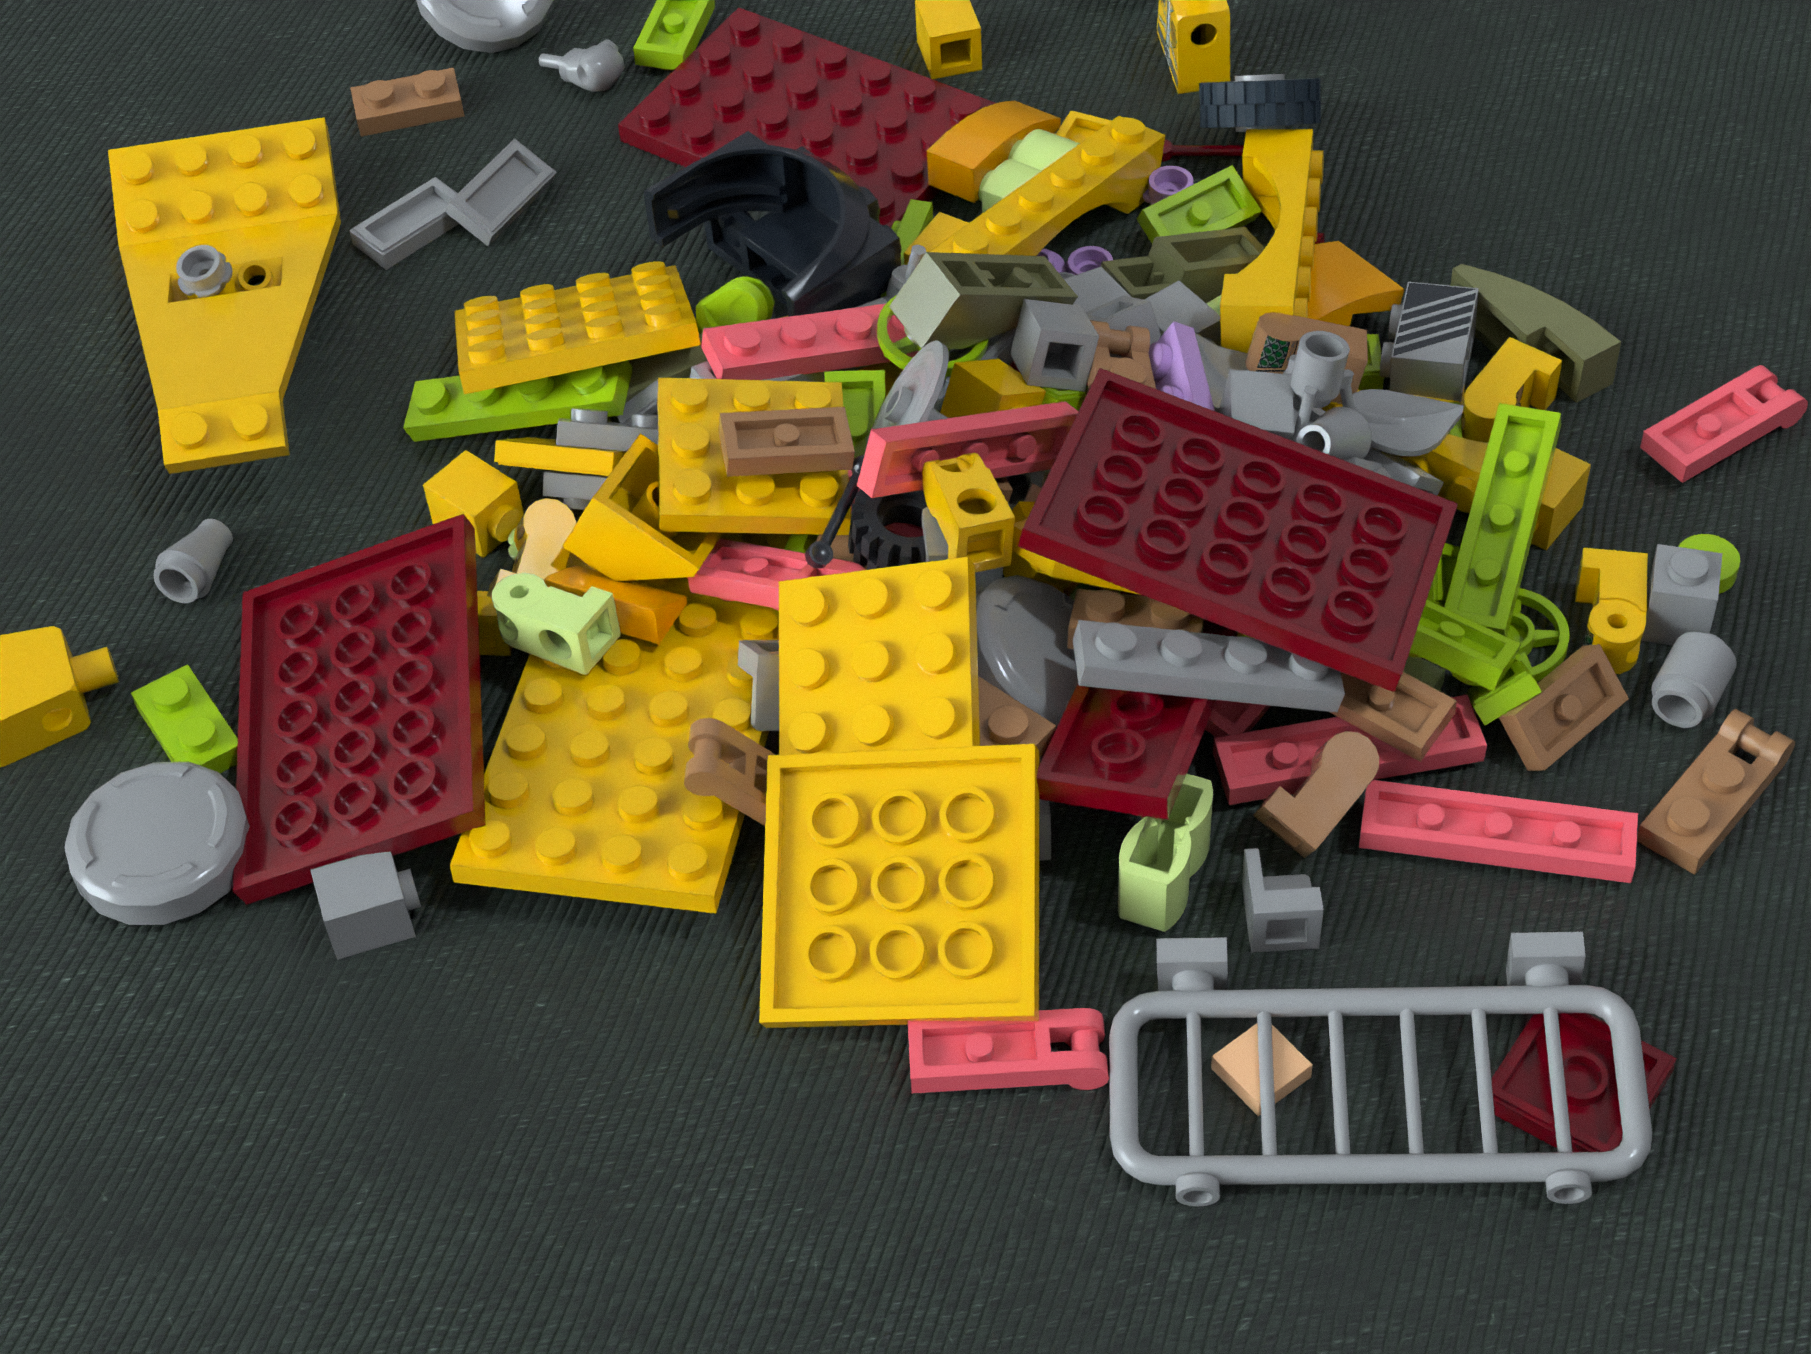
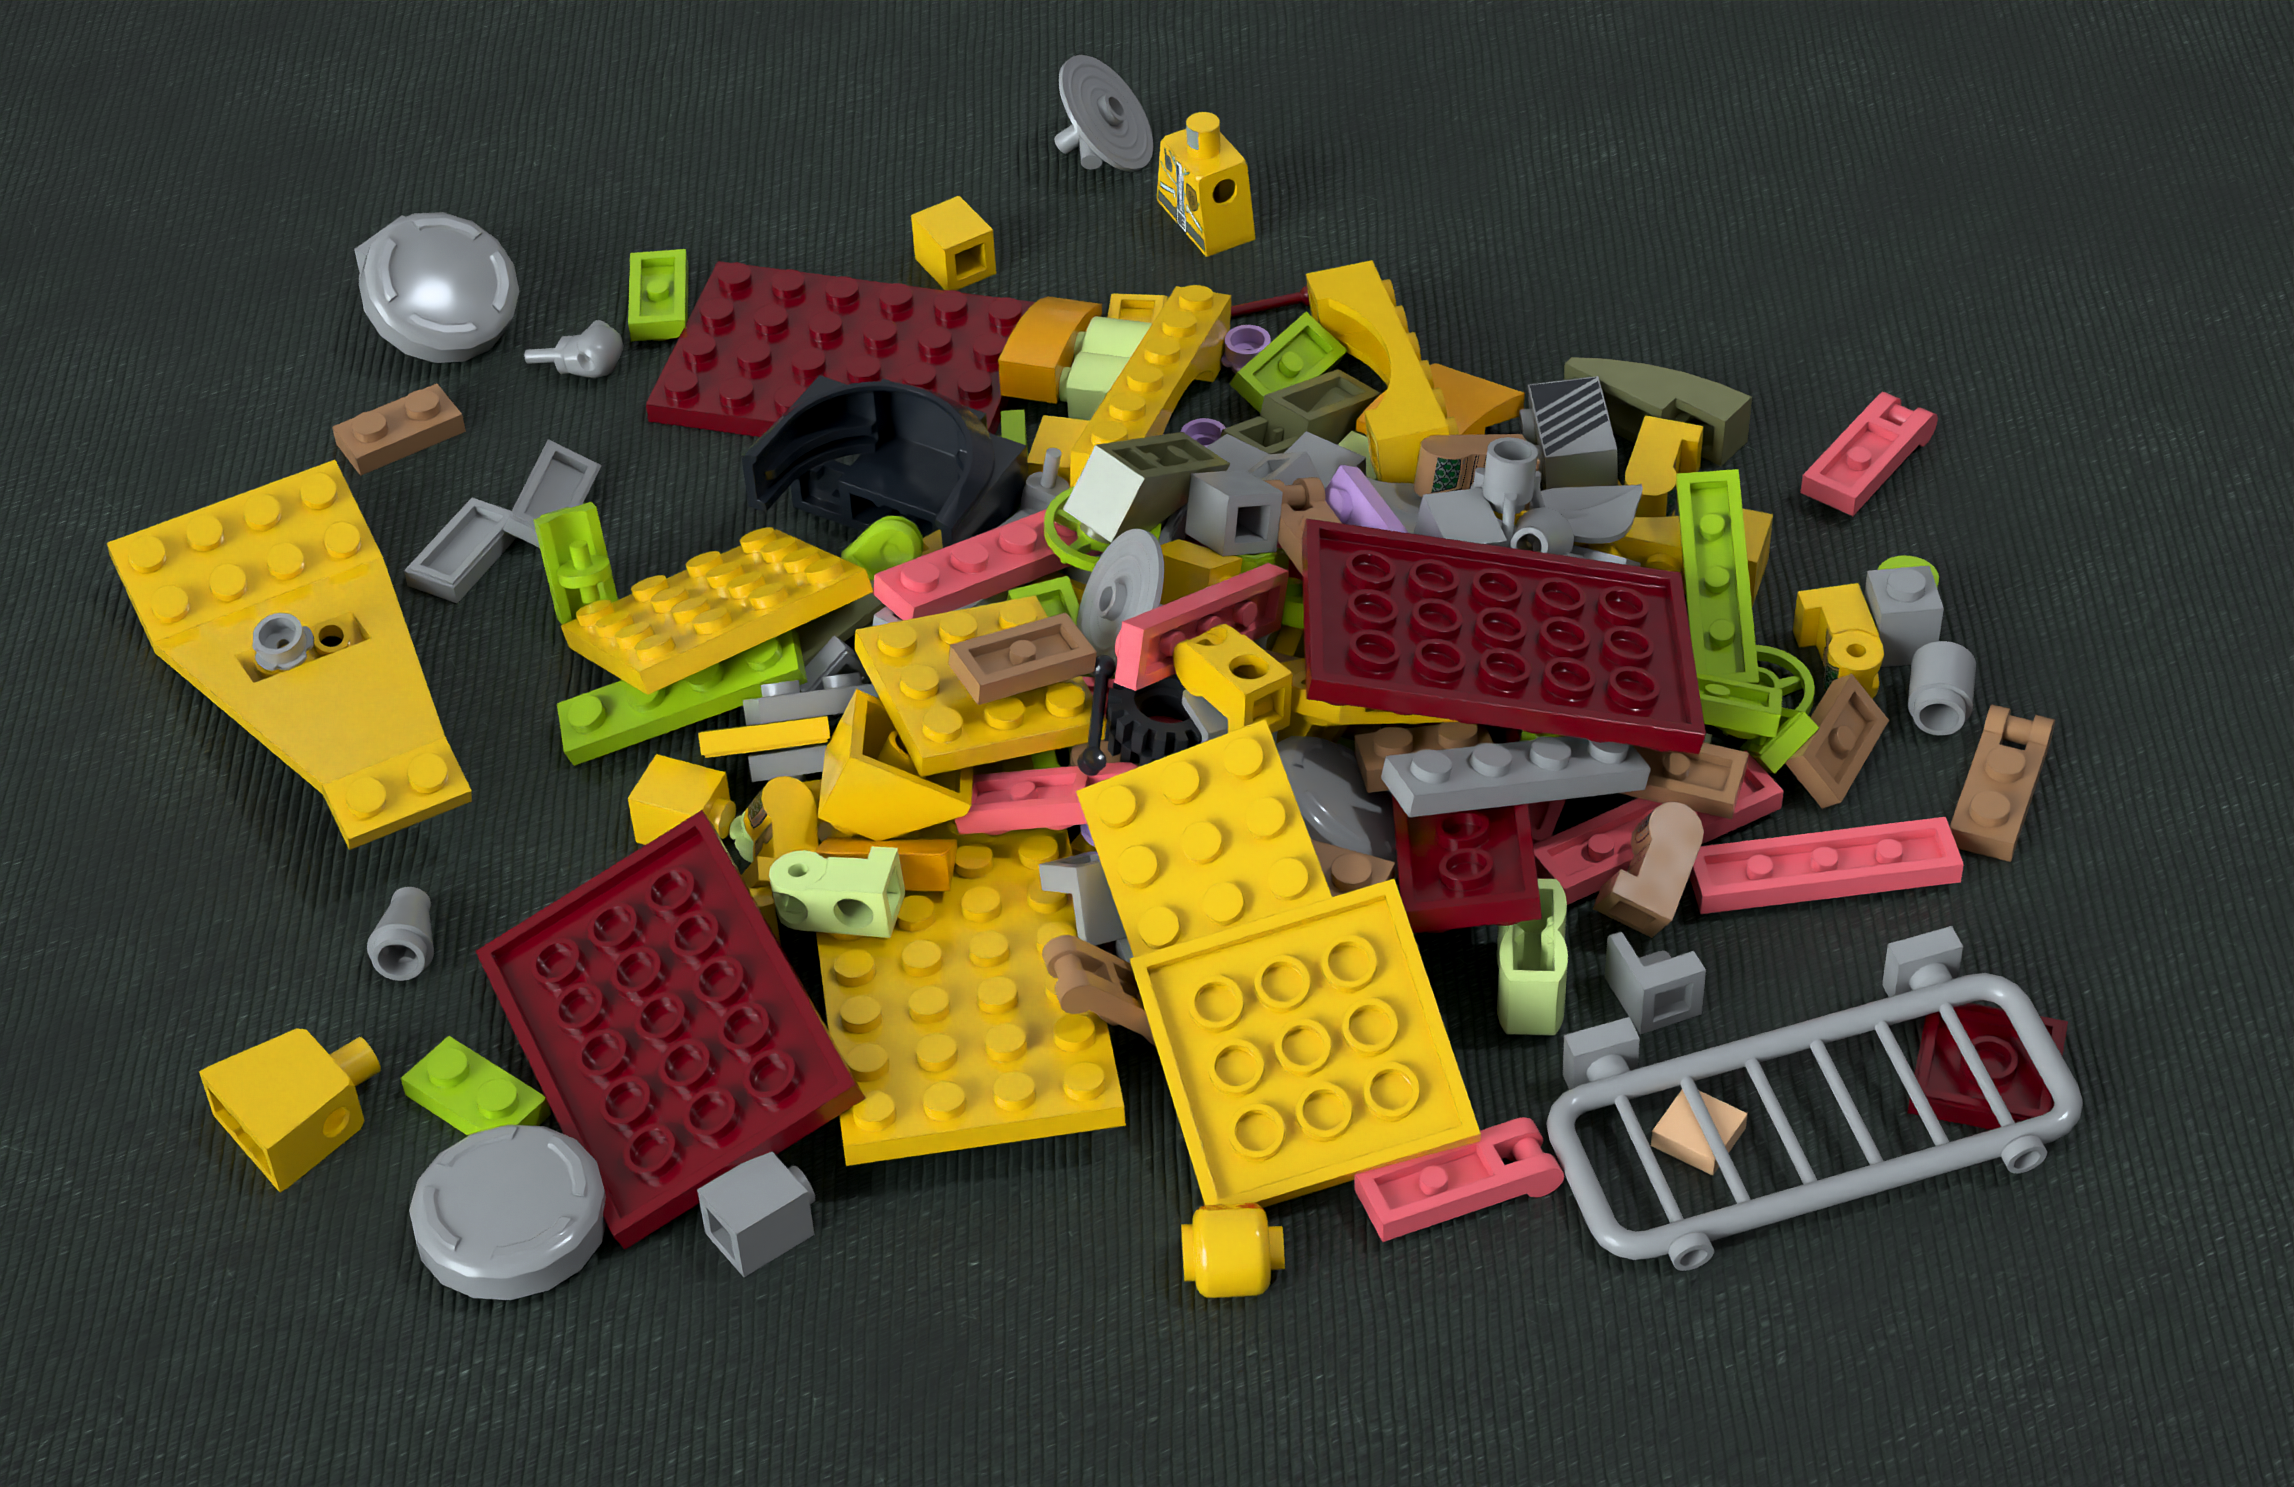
camera: 20 degrees left, 5 degrees down
(482, 252) = (575, 559): none -> lime hips
(763, 1062) = (1231, 1250): none -> yellow head
(1260, 102) = (1307, 245): black wheel -> none

